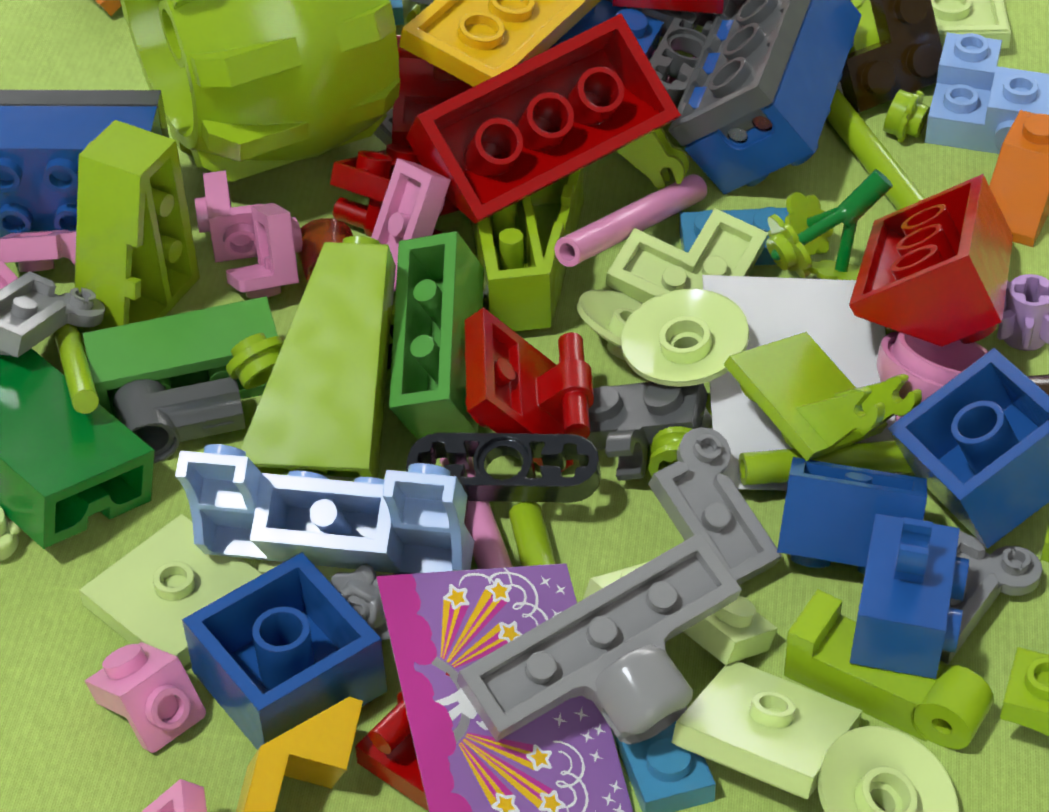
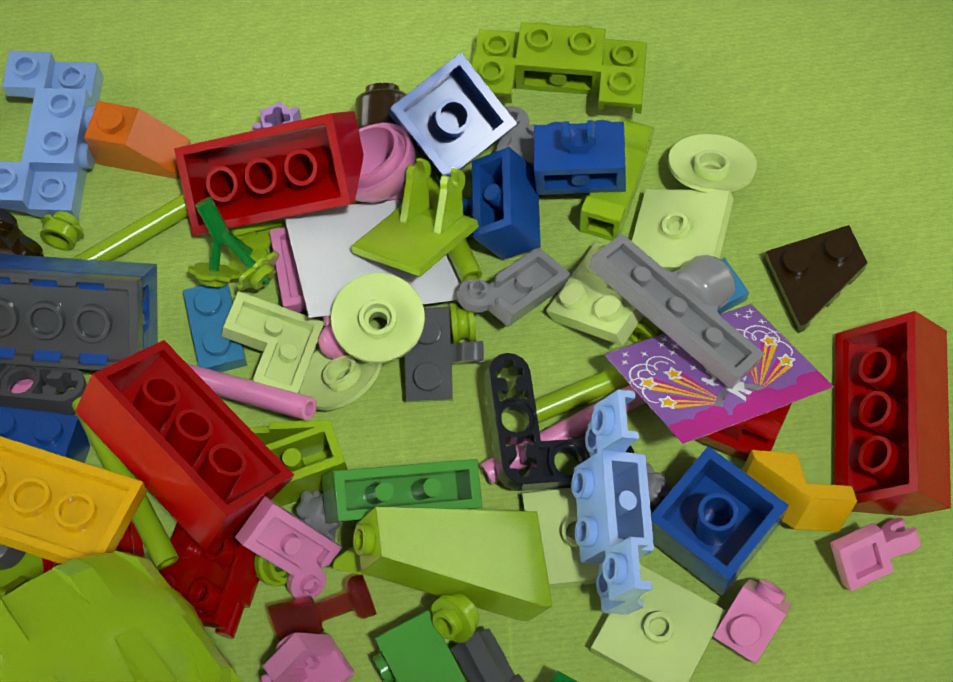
camera: 100 degrees left, 20 degrees up
(521, 389) = (436, 423): red plate -> none

